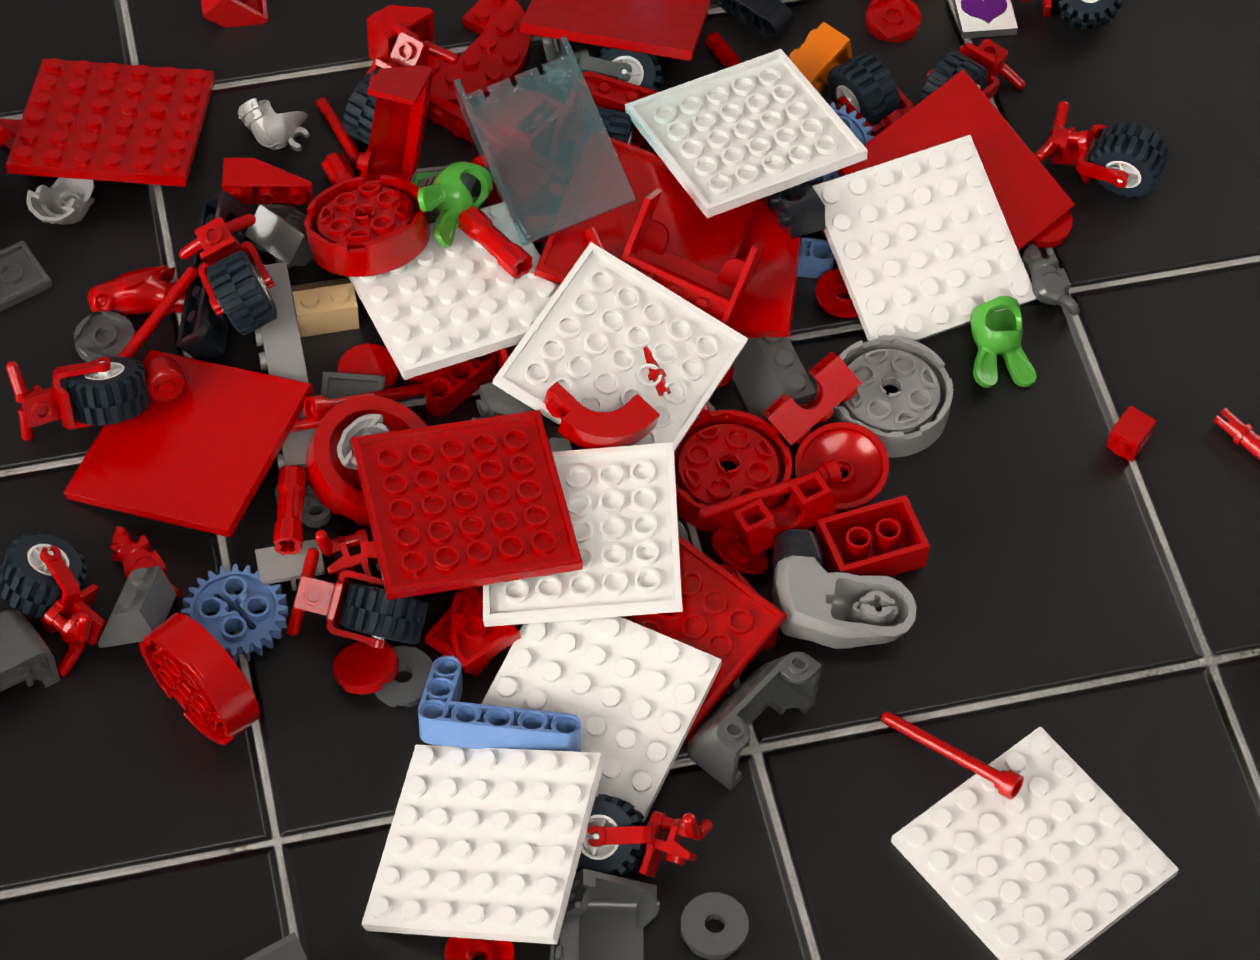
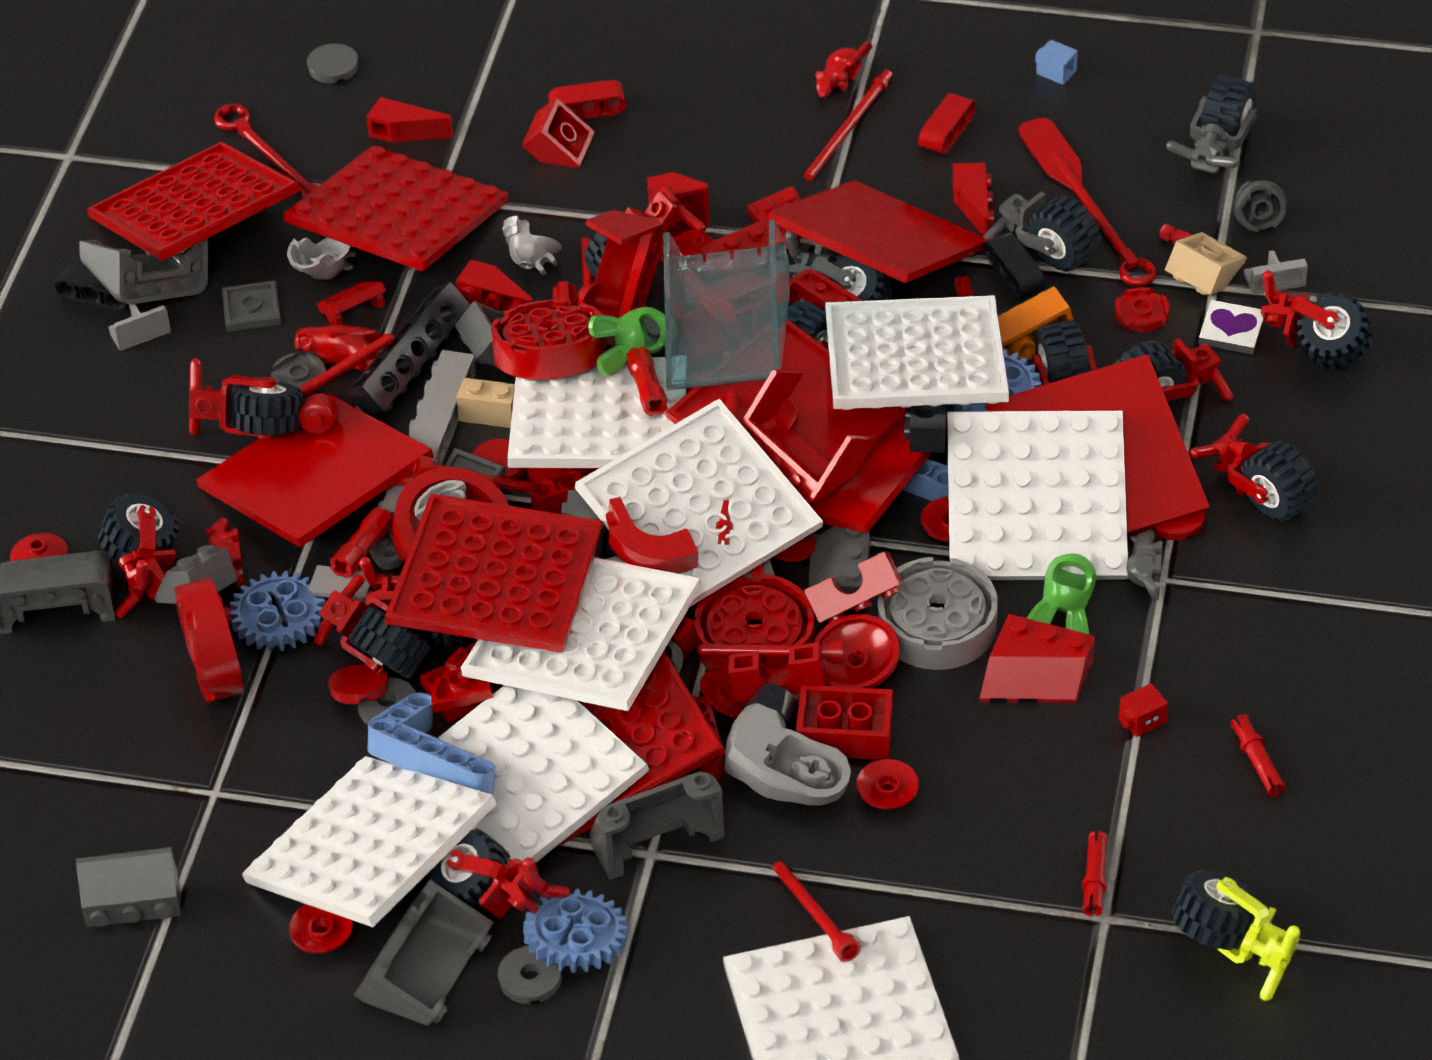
camera: 30 degrees right, 10 degrees down
(63, 24) = (404, 122): none -> red slope
(118, 230) = (350, 297): none -> red piece
(231, 276) = (415, 347): piece -> none
(768, 863) = (576, 931): none -> medium blue gear
(946, 583) = (887, 784): none -> red dish
(1009, 417) = (1037, 662): none -> red wedge
(1186, 629) = (1094, 883): none -> red pin

